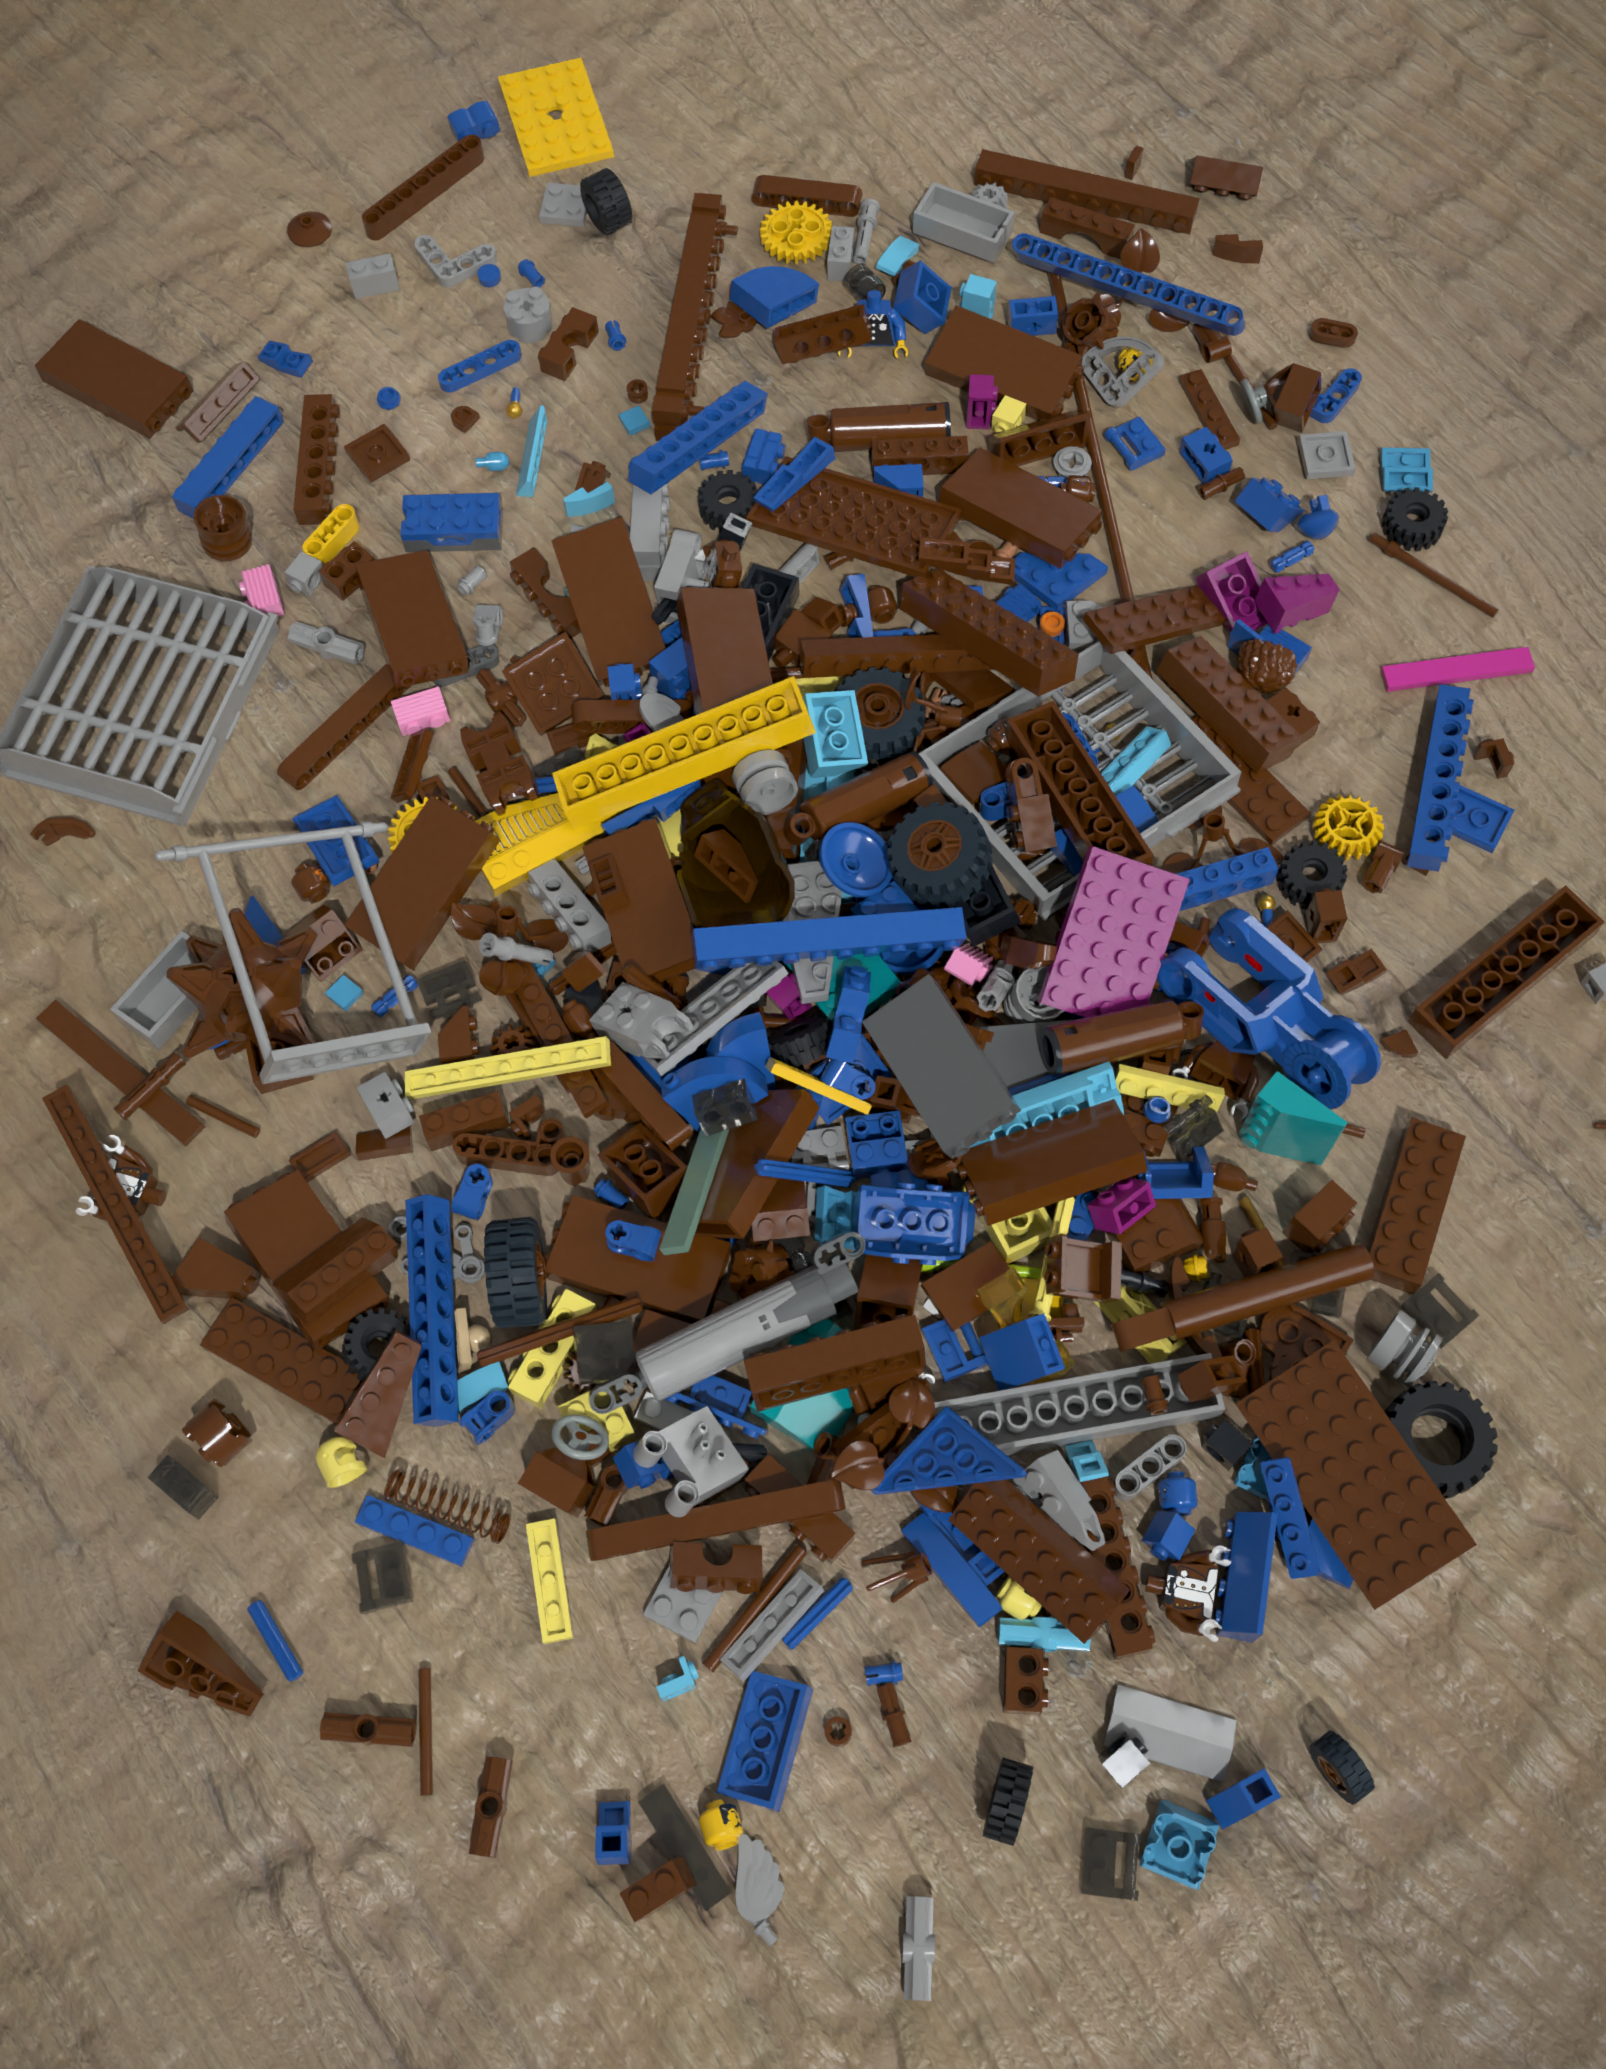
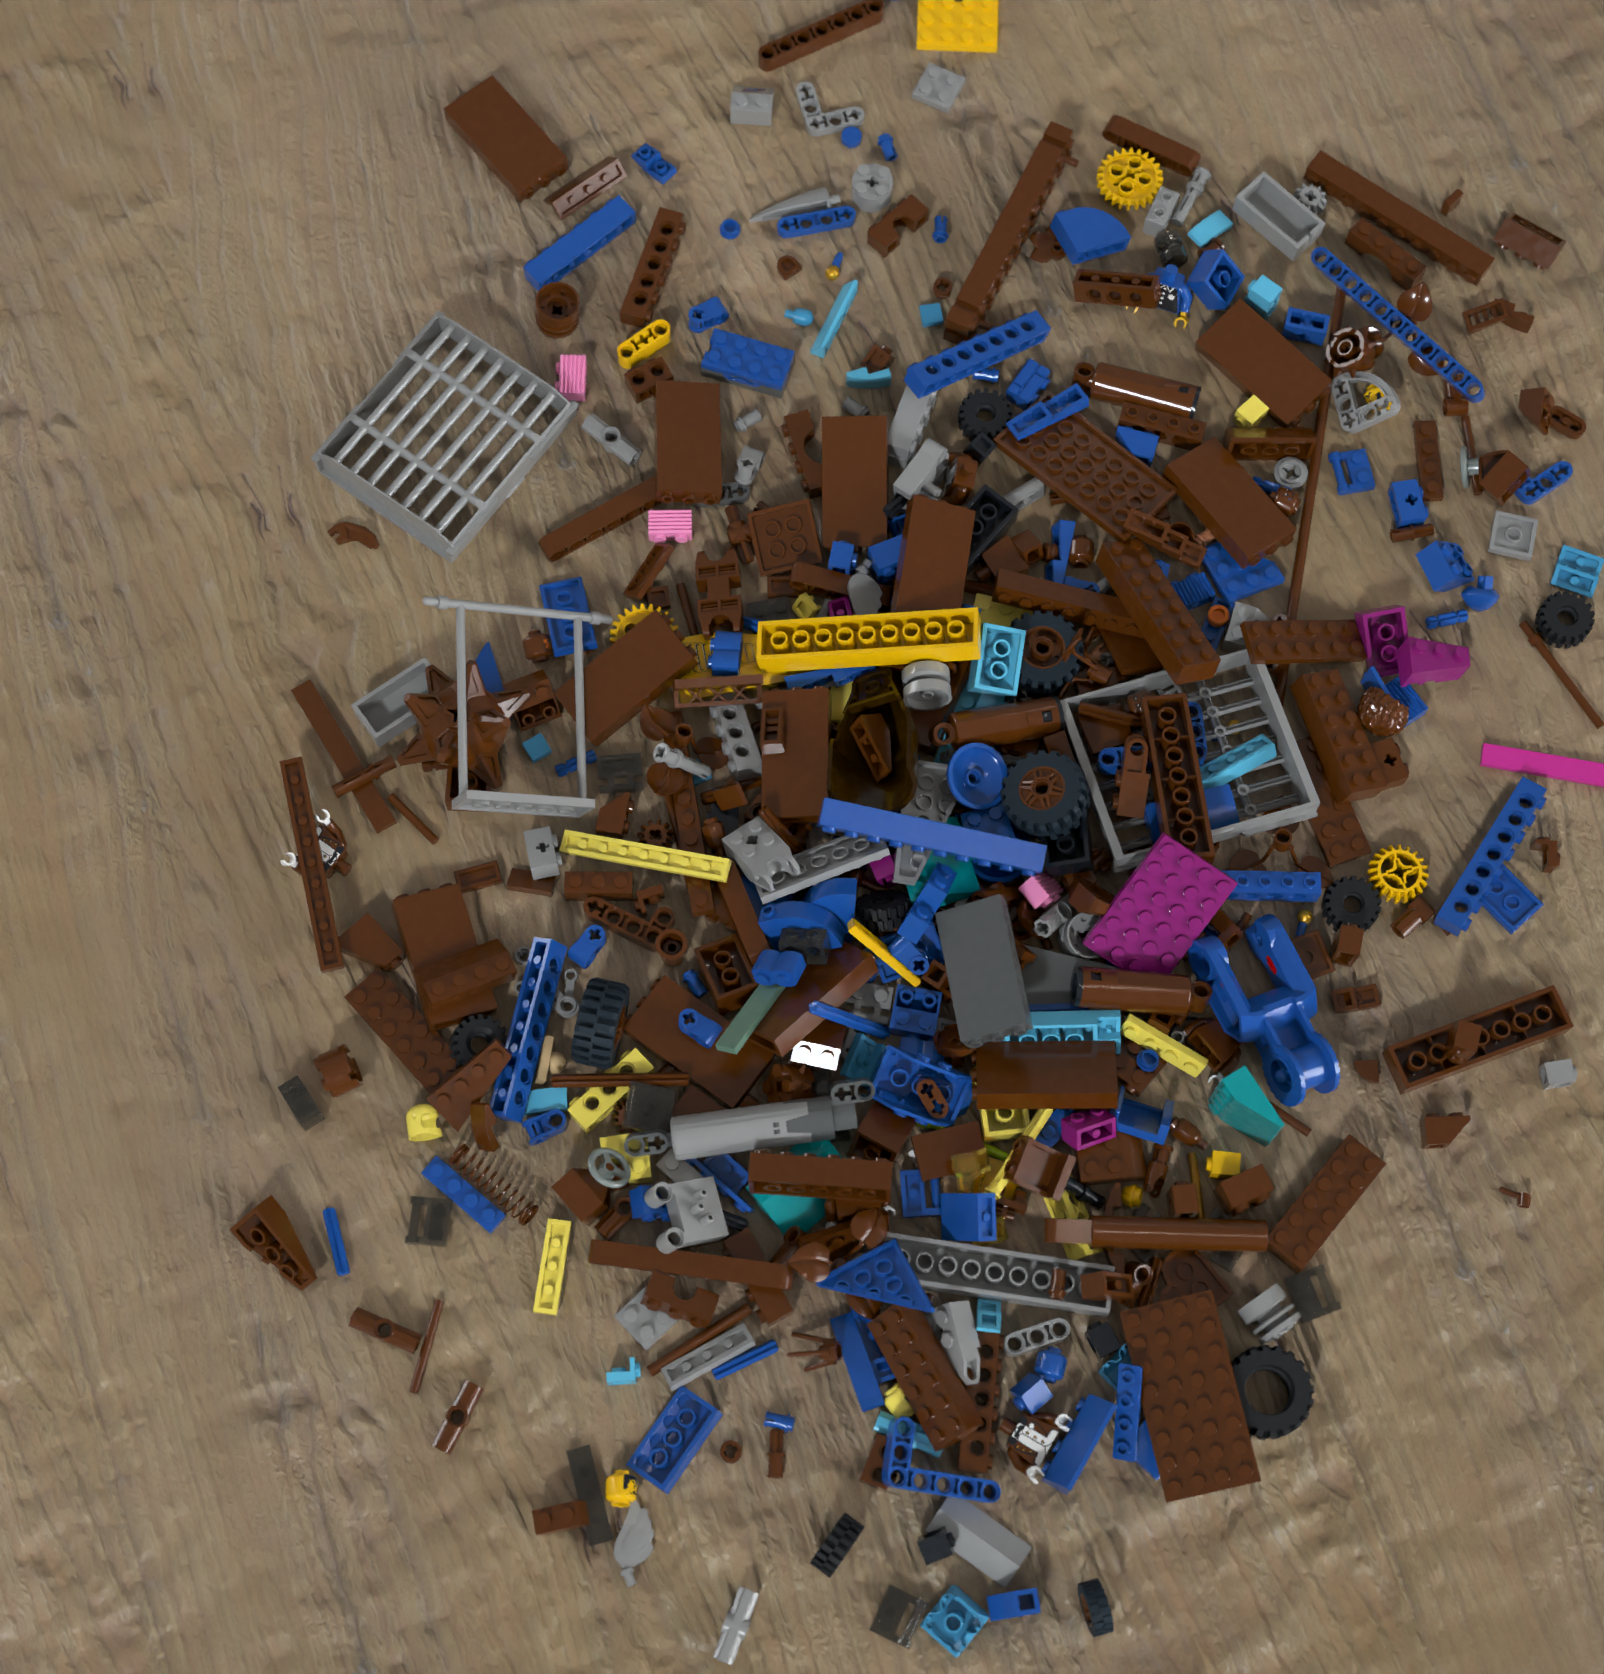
camera: 15 degrees right, 5 degrees up
(304, 574) = (611, 371): light grey brick -> none
(309, 229) = (711, 49): reddish brown dish -> none
(377, 453) = (705, 278): reddish brown plate -> none
(392, 487) = (708, 314): none -> blue piece
(409, 1435) = (482, 1120): none -> reddish brown slope
(458, 351) = (803, 203): none -> light grey piece
(528, 821) = (727, 653): none -> blue brick
(529, 853) = (715, 683): none -> reddish brown fence
(606, 201) = (973, 101): black tyre -> none
(613, 1833) = (541, 1467): blue brick -> none
(704, 1140) = (778, 968): none -> blue brick
(934, 1226) = (927, 1100): none -> reddish brown beam
(976, 754) = (1109, 714): none -> reddish brown axle
(980, 402) = (1230, 393): magenta brick -> none
(1088, 1679) = (929, 1478): none -> blue beam
(1194, 1133) = (1171, 1083): clear smoke plate -> none
(1209, 267) = (1488, 322): none -> reddish brown slope
(1284, 1199) = (1223, 1164): none -> yellow brick
(1299, 325) = (1536, 407): none -> reddish brown slope
(1498, 972) = (1462, 1041): none -> reddish brown brick
(1508, 1082) = (1441, 1130): none -> reddish brown slope

